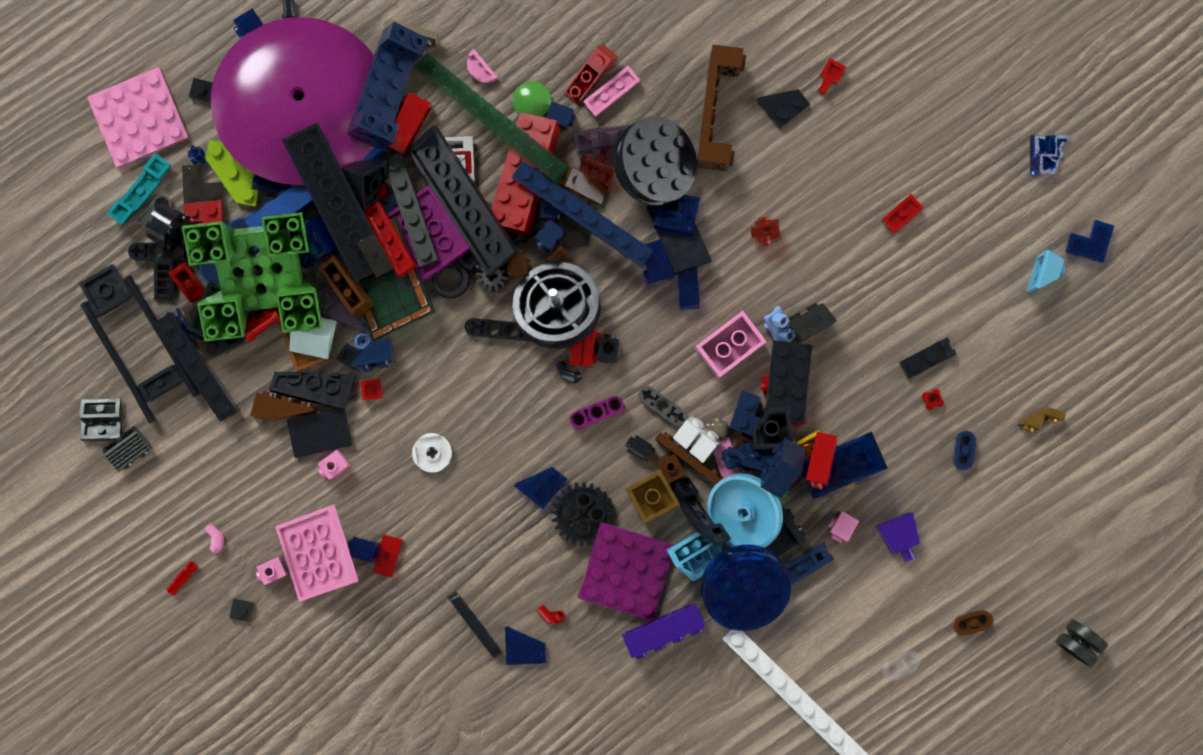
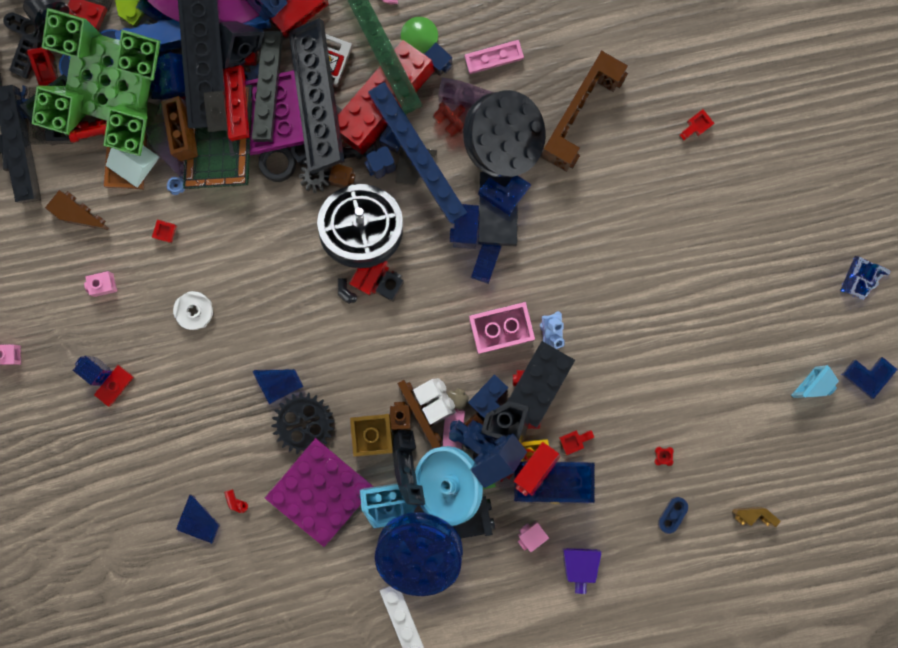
camera: 25 degrees right, 0 degrees up
(315, 387) = (118, 210): black wing -> none
(317, 553) = (48, 356): bright pink plate -> none
(319, 432) = (102, 249): black tile -> none
(348, 355) = (158, 193): black plate -> none
(376, 353) = (180, 201): dark blue slope -> none
(474, 624) = (163, 481): black beam -> none
(502, 329) = (302, 230): black beam -> none
(559, 255) = (384, 183): dark orange tile -> none
(583, 185) = (430, 128): reddish brown slope -> none
(590, 73) = (482, 33): red slope -> none
(603, 405) = (346, 337): magenta beam -> none
(639, 448) = (380, 386): black brick -> none
(647, 402) = (425, 359): dark grey beam -> none
(663, 630) = (328, 561): dark purple brick -> none
(770, 226) = (584, 239): clear red brick -> none
(783, 106) = (643, 135): black wing -> none
(808, 563) = (485, 556): dark blue plate -> none
(812, 322) = (583, 339): pearl dark grey slope -> none
(843, 422) = (574, 442): none -> red plate
(902, 214) = (708, 277): red plate -> none
(926, 358) = (674, 417): black plate -> none

